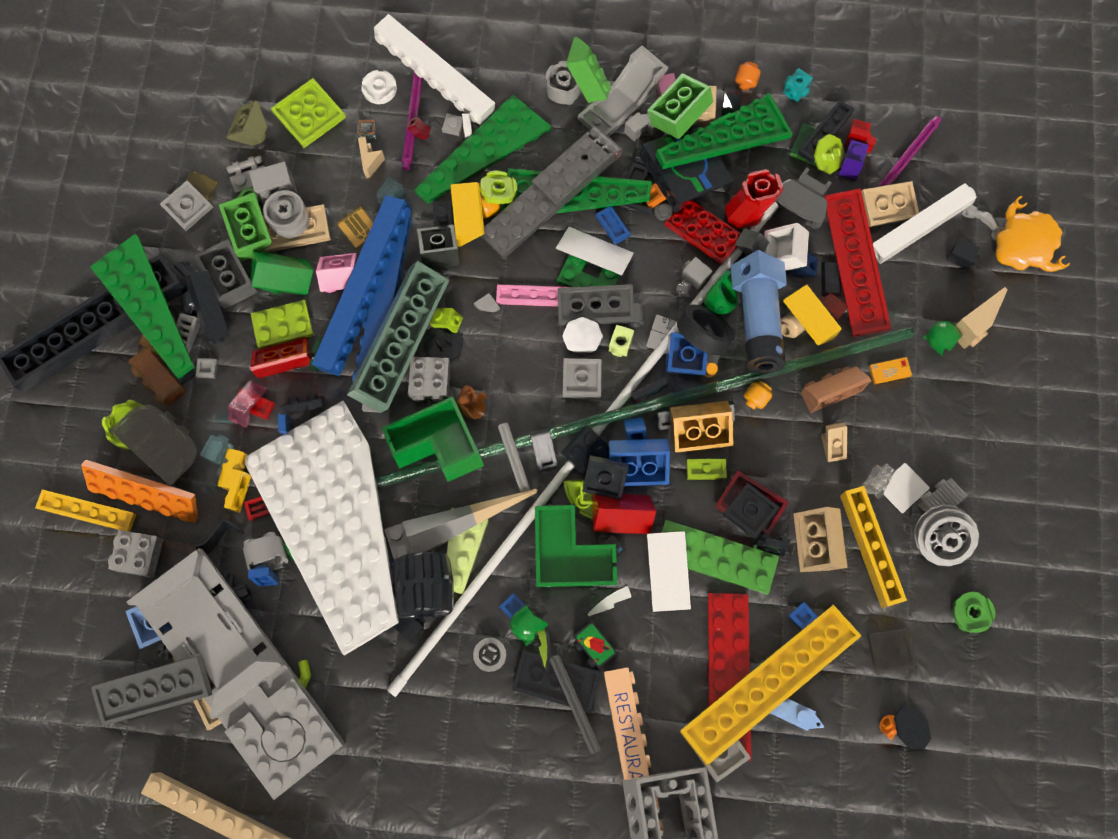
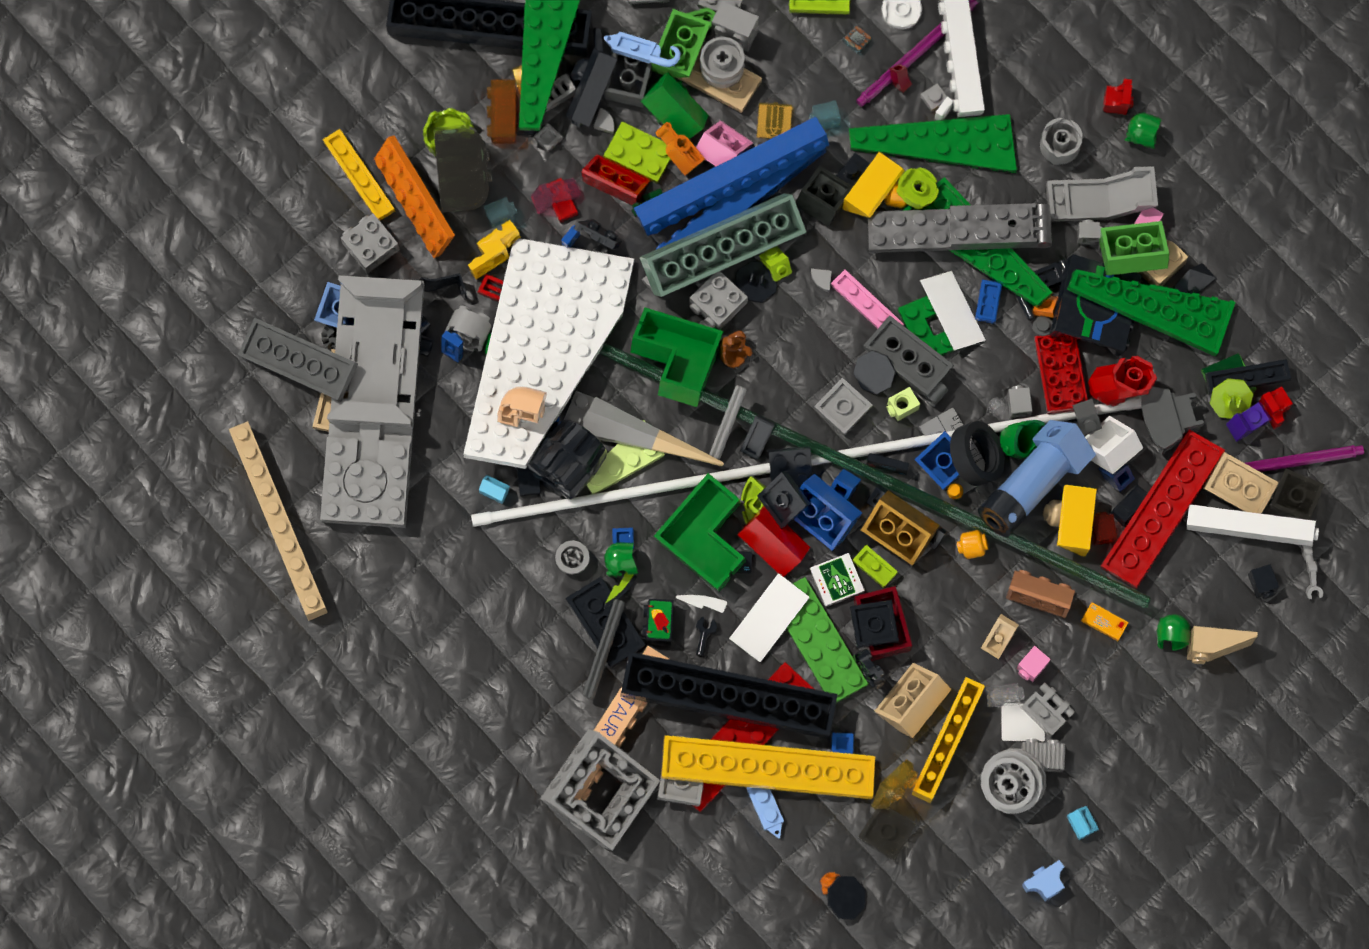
camera: 40 degrees right, 0 degrees up
(219, 250) = (640, 49): none -> light blue plate
(238, 324) = (604, 122): none -> light grey tile
(305, 674) = (420, 447): lime arm -> none
(308, 297) = (680, 149): none -> orange piece
(355, 577) = (521, 404): none -> light nougat brick
(370, 159) = (833, 71): tan slope -> none
(386, 654) = (494, 489): none -> medium azure piece
(574, 26) = (1118, 98): none -> red brick
(587, 72) = (1084, 151): bright green slope -> none
(609, 32) = (1143, 130): none -> green helmet
(634, 625) = (704, 634): none -> black bar
(688, 502) = (837, 580): none -> tile
(696, 657) = (728, 695): none -> black brick
(747, 75) = (1229, 270): orange head -> none
(797, 85) = (1264, 316): teal brick -> none
(874, 442) = (1033, 664): none -> bright pink brick
(874, 613) = (895, 785): none -> clear yellow slope
(913, 469) = (1043, 713): none -> light grey plate
(931, 181) = (1295, 496): none -> clear smoke brick
(964, 620) = (977, 849): bright green plate -> none
(1011, 522) = (1082, 822): none -> medium azure piece
(1029, 240) = (1328, 617): light orange piece -> none
(1030, 585) = (1046, 881): none -> light blue brick

